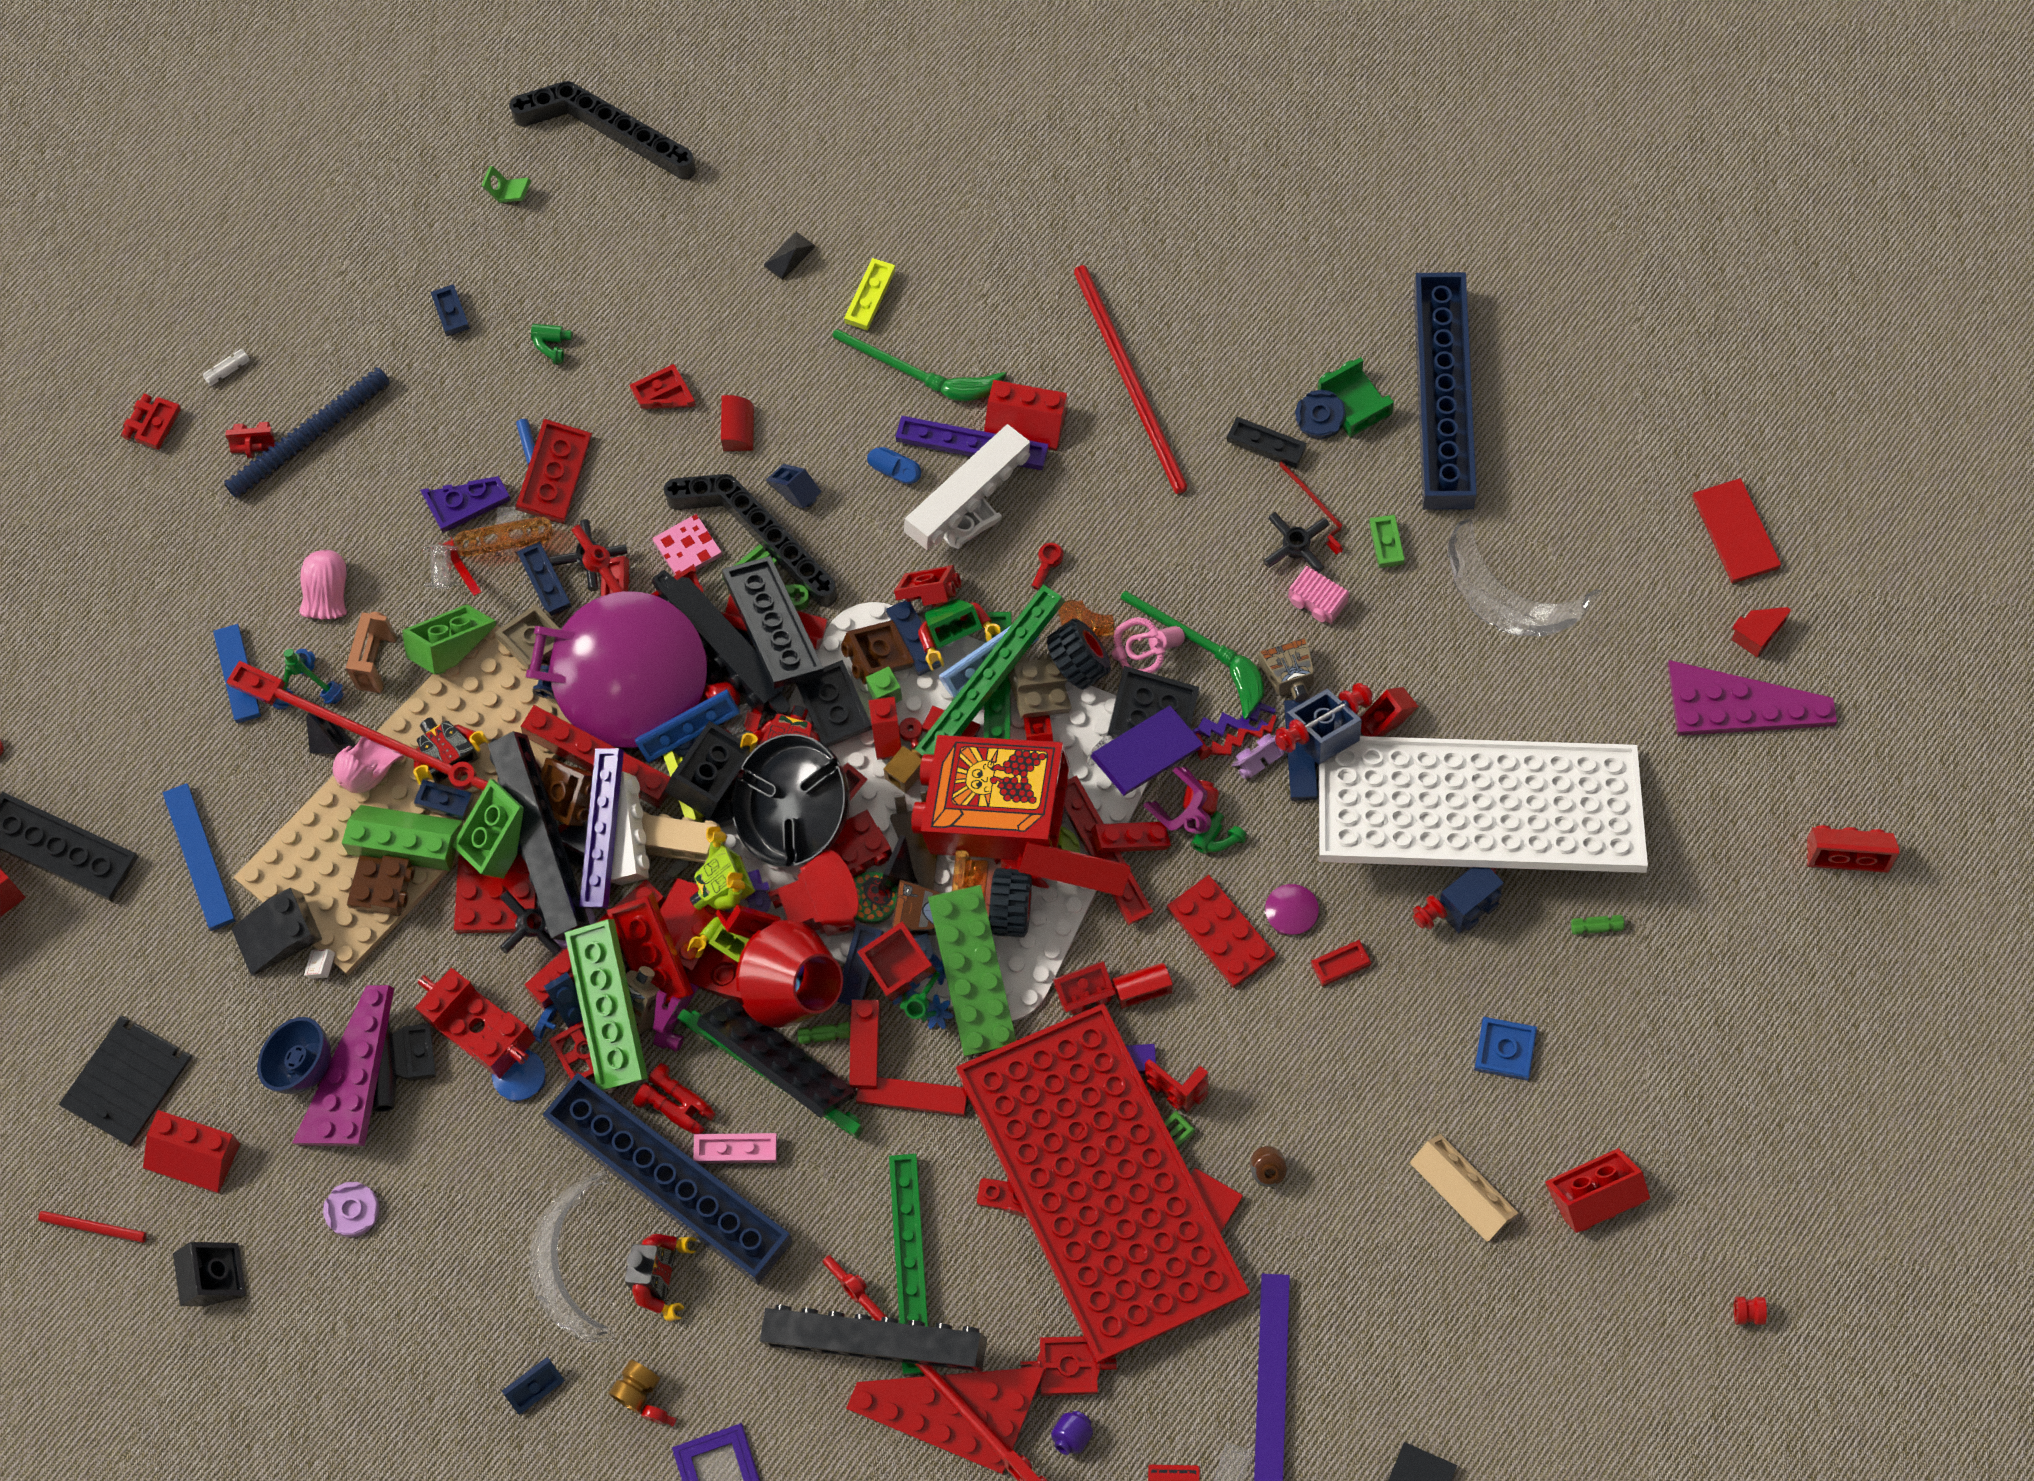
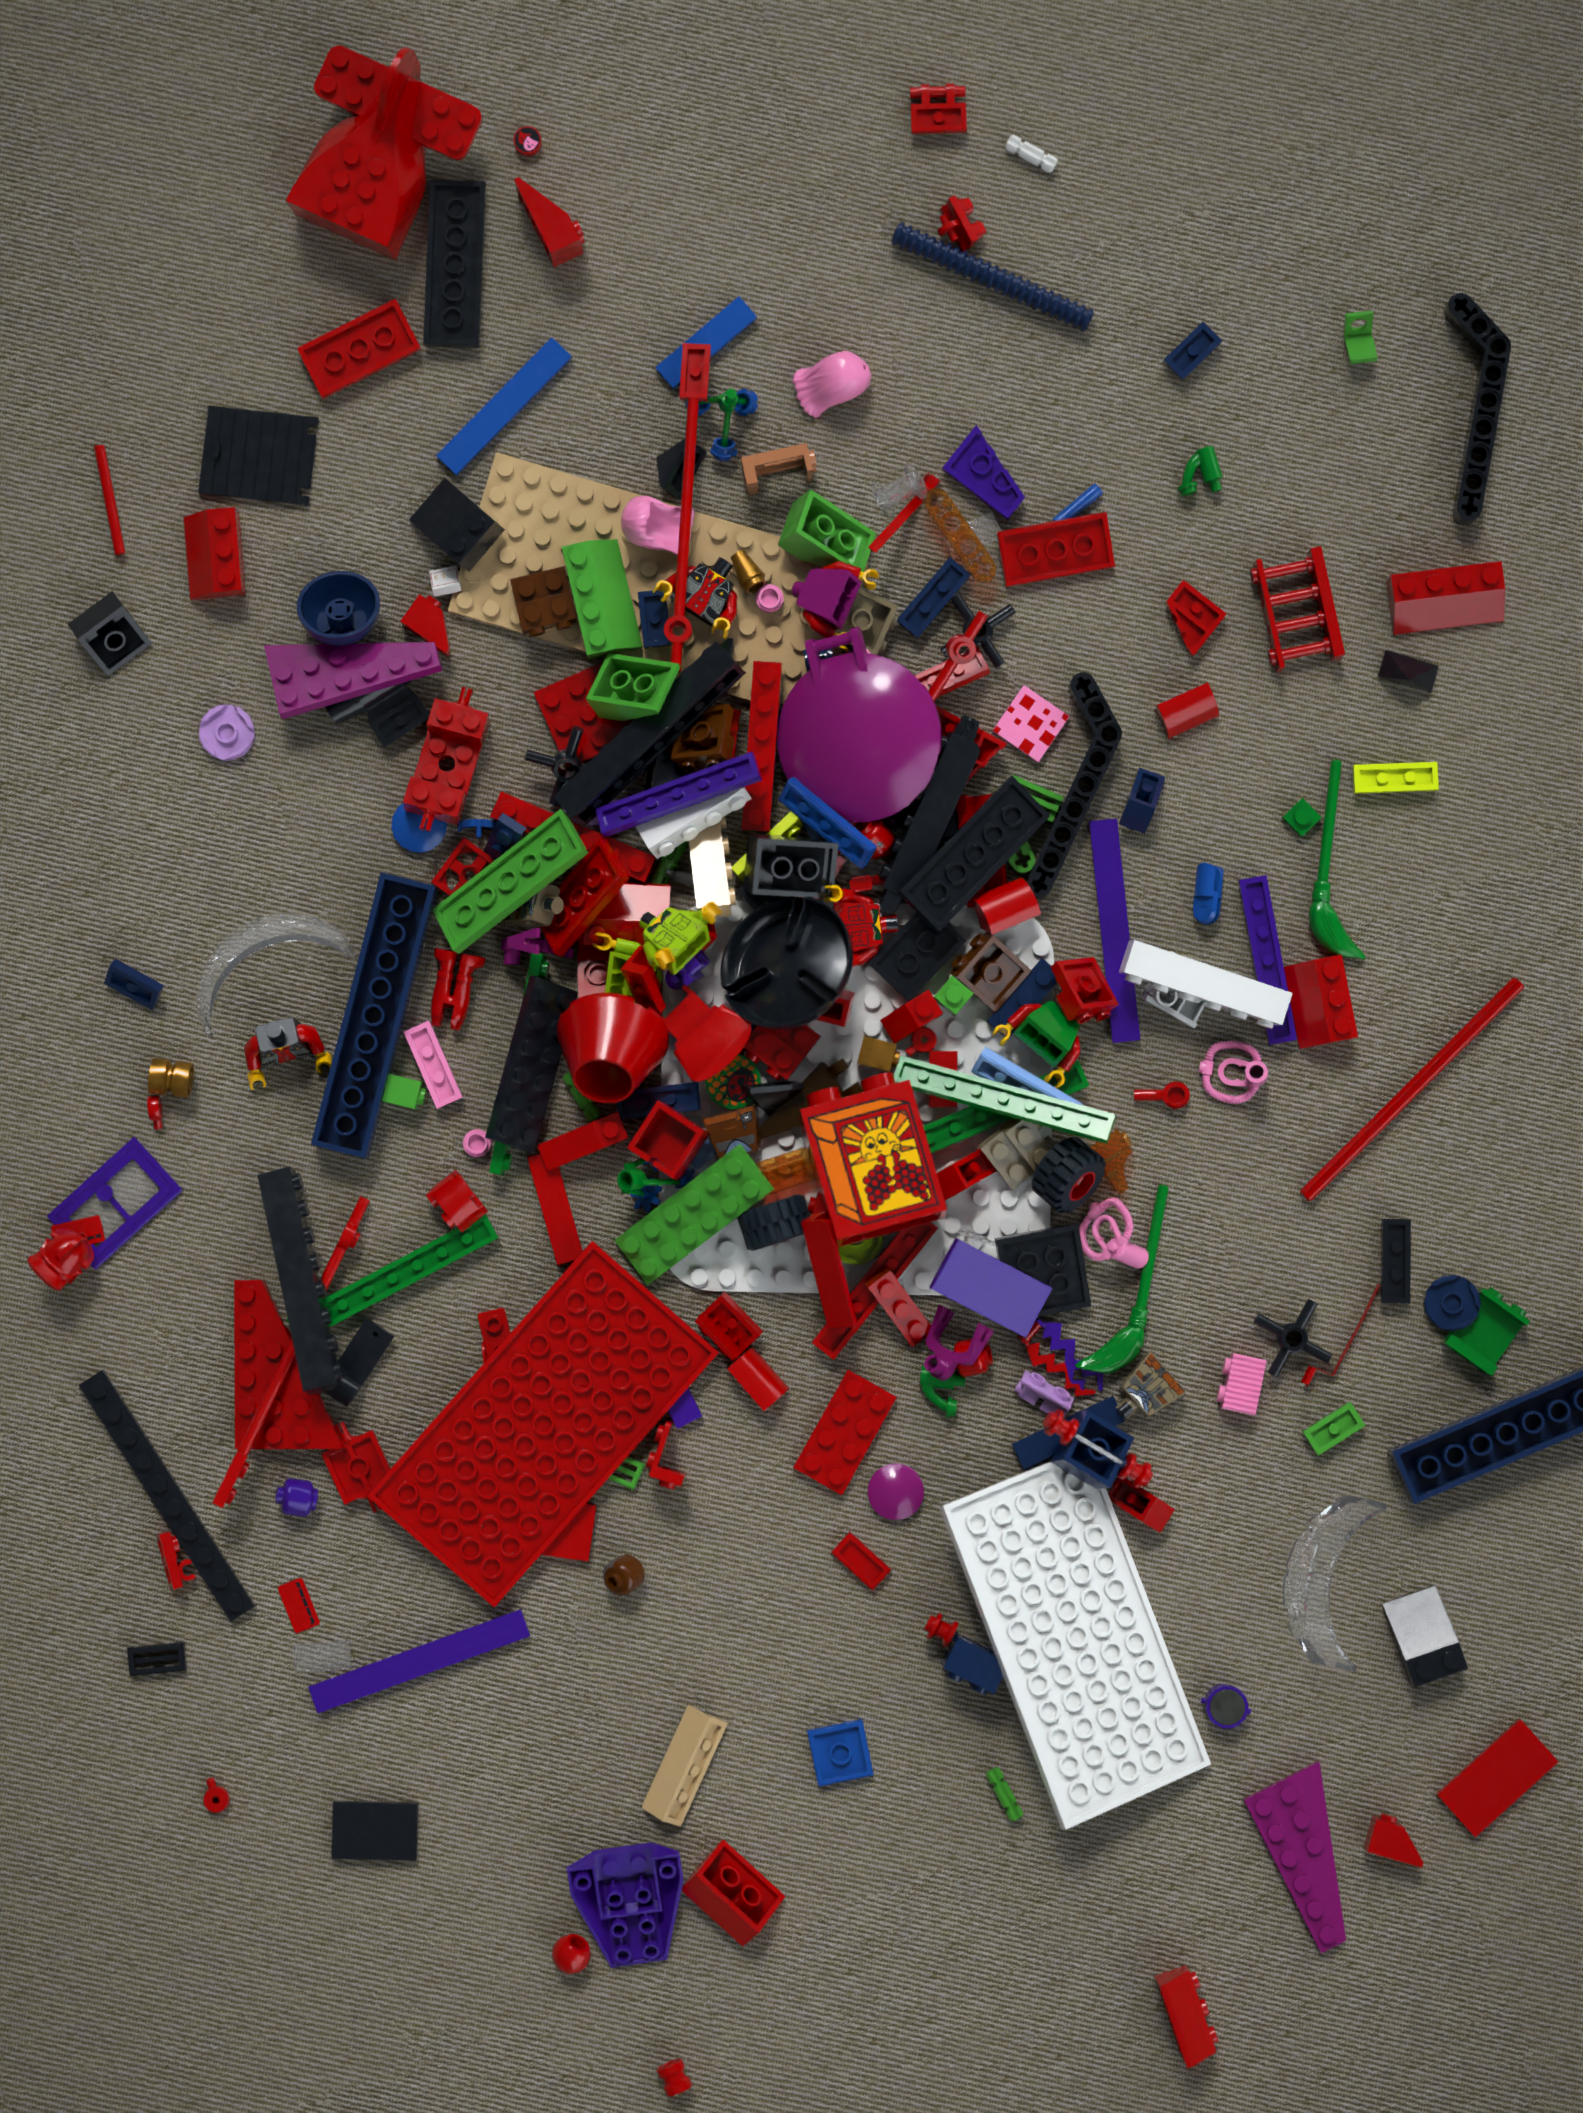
camera: 60 degrees right, 20 degrees up
(67, 749) = (554, 227): none -> red slope
(82, 955) = (359, 348): none -> red plate
(345, 991) = (428, 622): none -> red slope
(445, 709) = (747, 572): none -> pearl gold cone
(475, 702) = (769, 598): none -> bright pink plate
(499, 648) = (829, 596): none -> magenta torso
(656, 878) = (668, 863): none -> bright green axle
(698, 289) = (1319, 591): none -> red fence
(744, 203) = (1446, 597): none -> red slope
(748, 1181) = (404, 1092): none -> bright green brick
(823, 1140) = (476, 1144): none -> bright pink plate
(828, 616) = (1006, 906): none -> red brick
(865, 1174) = (457, 1200): none -> red cylinder
(867, 375) = (1301, 817): none -> green plate
(887, 548) = (1113, 926): none -> dark purple tile
(965, 1312) = (360, 1359): none -> black door
(1061, 485) = (1255, 1072): none -> bright pink piece
(1570, 1281) = (629, 1900): none -> dark purple wedge
(1590, 714) = (1226, 1705): none -> pearl dark grey piece
(1594, 538) = (1424, 1636): none -> slope
(1599, 1356) = (571, 1954): none -> red piece

